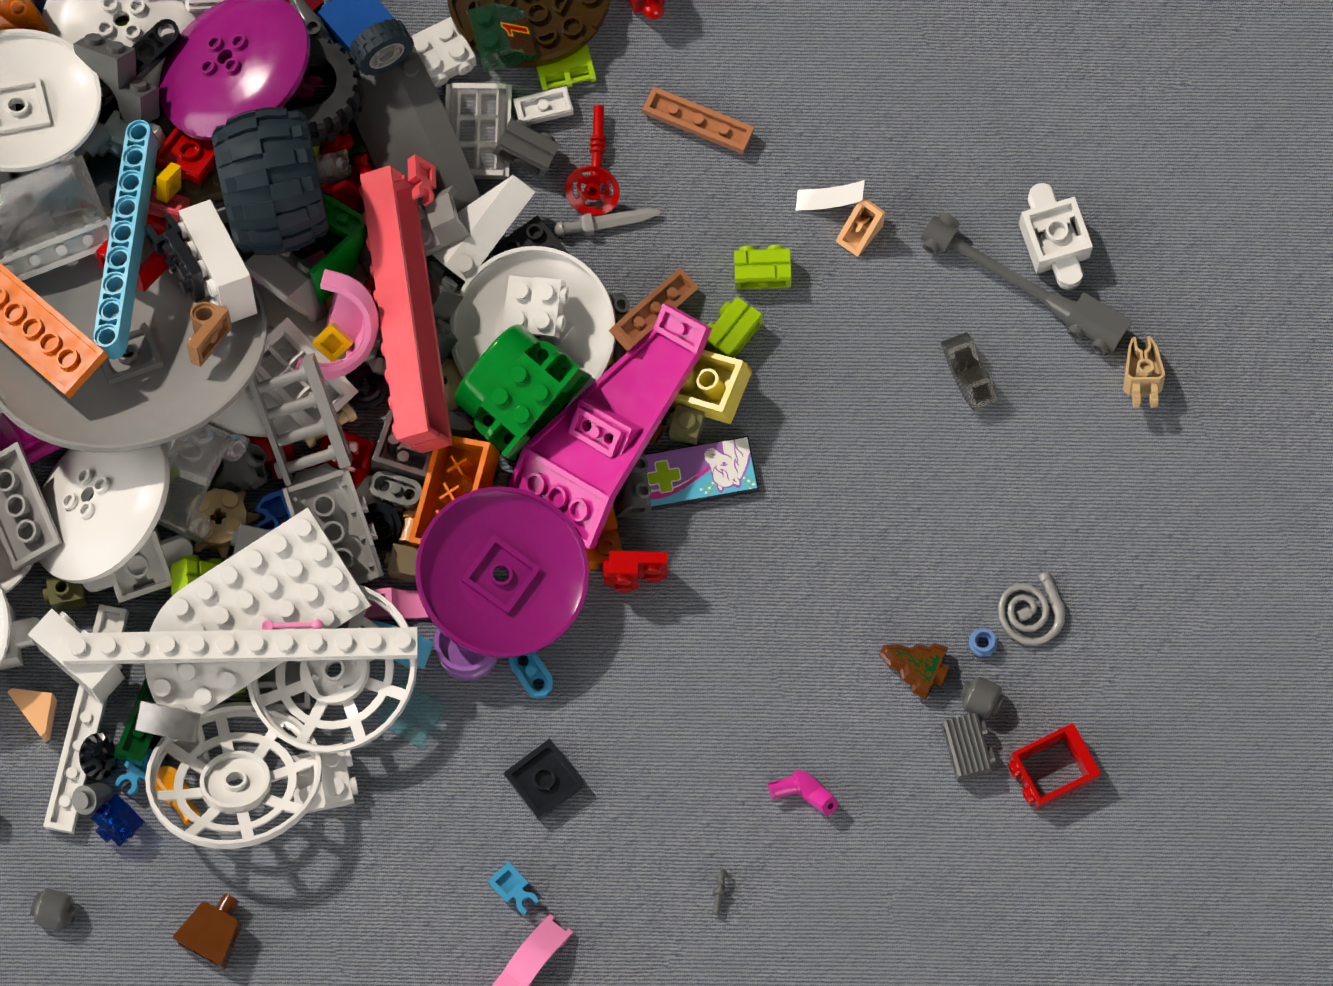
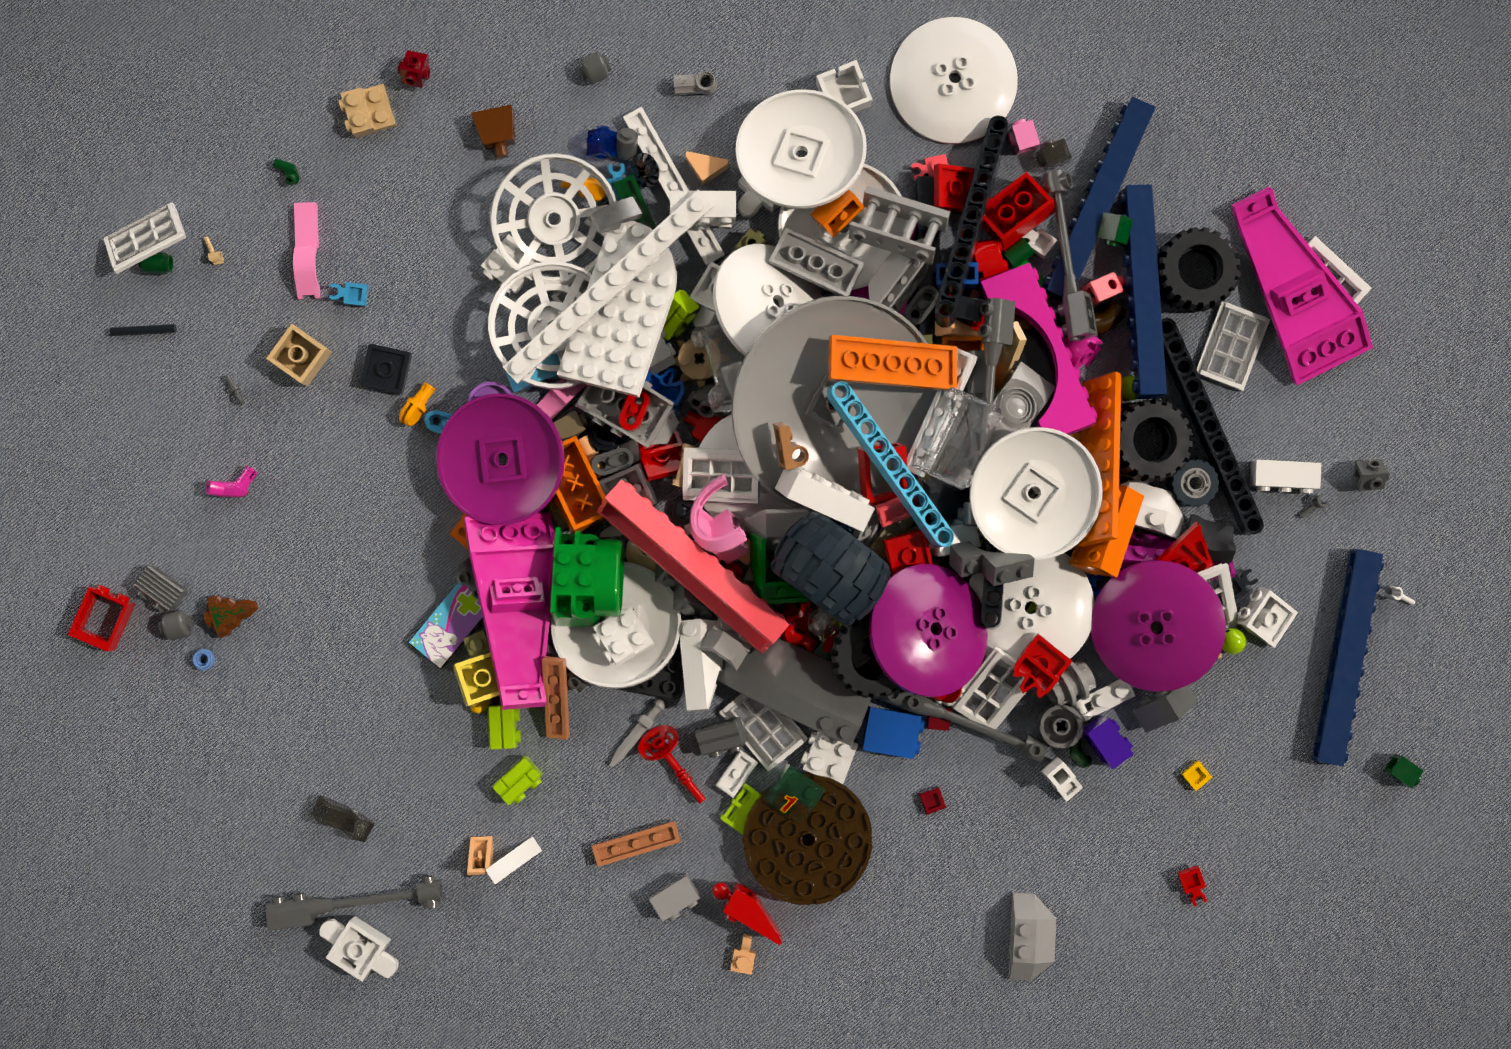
camera: 135 degrees right, 15 degrees up
(168, 182) = (900, 524): yellow tile -> none
(178, 258) = (850, 479): black plate -> none
(269, 625) = (602, 313): bright pink hinge -> none
(319, 399) = (693, 469): light grey fence -> none
(325, 509) = (634, 410): none -> red plate
(332, 342) = (720, 513): yellow tile -> none
(381, 47) = (849, 717): black wheel -> none
(416, 719) = (484, 348): clear light blue piece -> none
(423, 177) = (755, 658): coral plate -> none
(540, 716) = (416, 405): none -> light orange arm
(619, 863) = (299, 355): none -> tan brick
(626, 567) = (437, 526): red plate -> none
(704, 42) = (675, 897): none -> light grey brick
(1026, 613) = (177, 717): light grey piece -> none
(1143, 372) = (238, 904): tan hinge -> none

